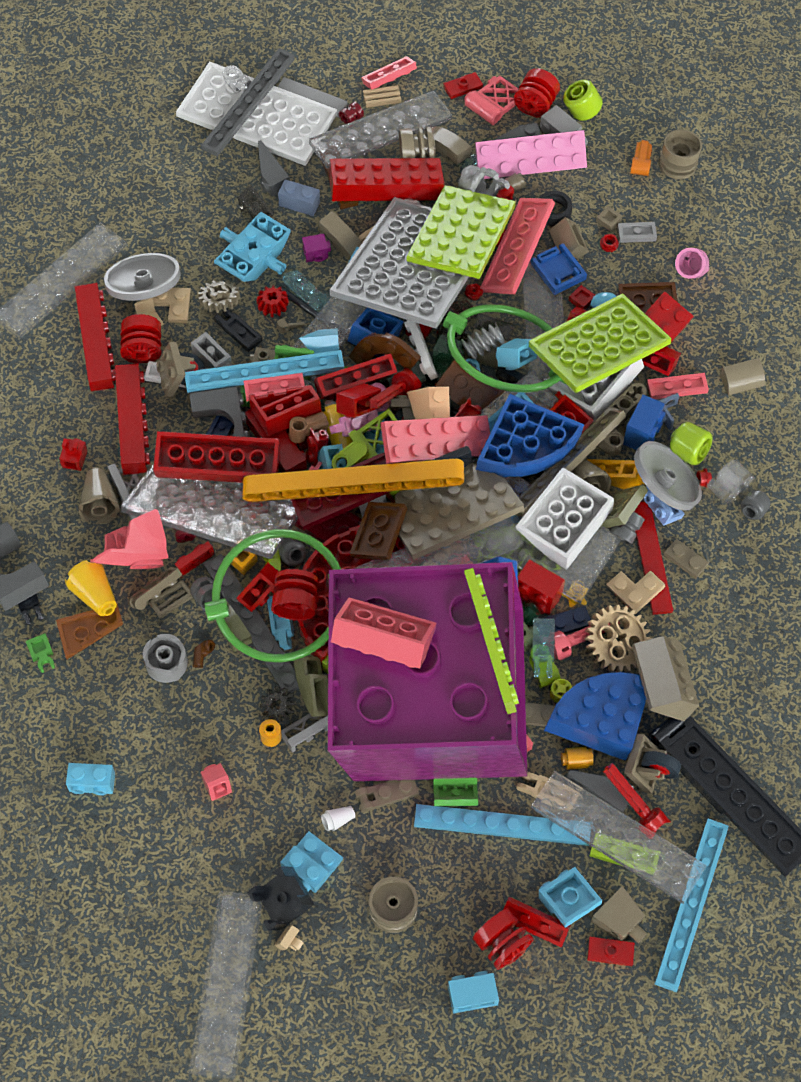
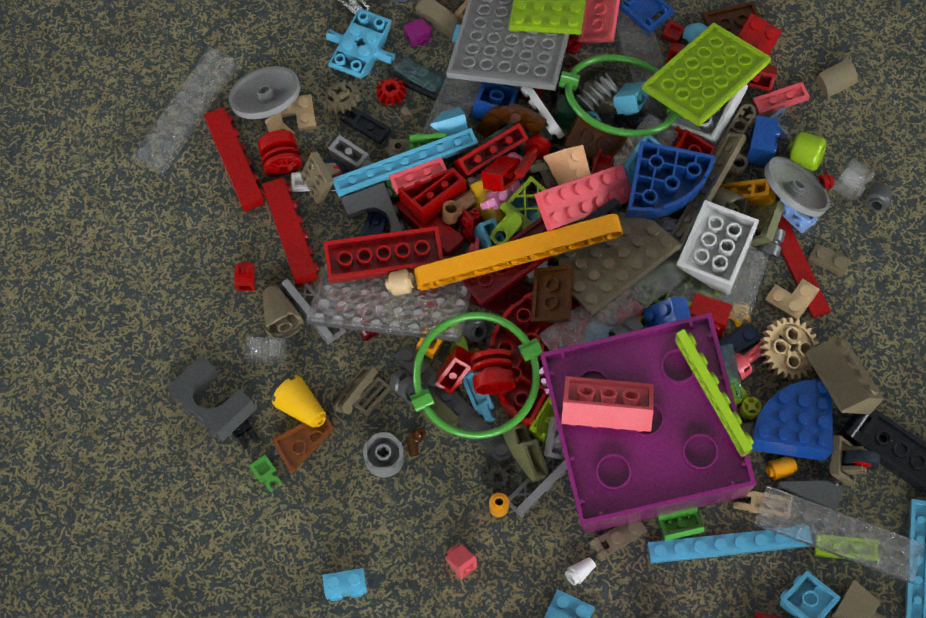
camera: 10 degrees left, 5 degrees up
(74, 530) = (266, 350): none -> clear brick
(137, 545) = (332, 356): coral piece -> none
(199, 555) = (389, 346): red plate -> none
(227, 488) = (400, 282): none -> tan head
(650, 818) = (862, 510): red piece -> none

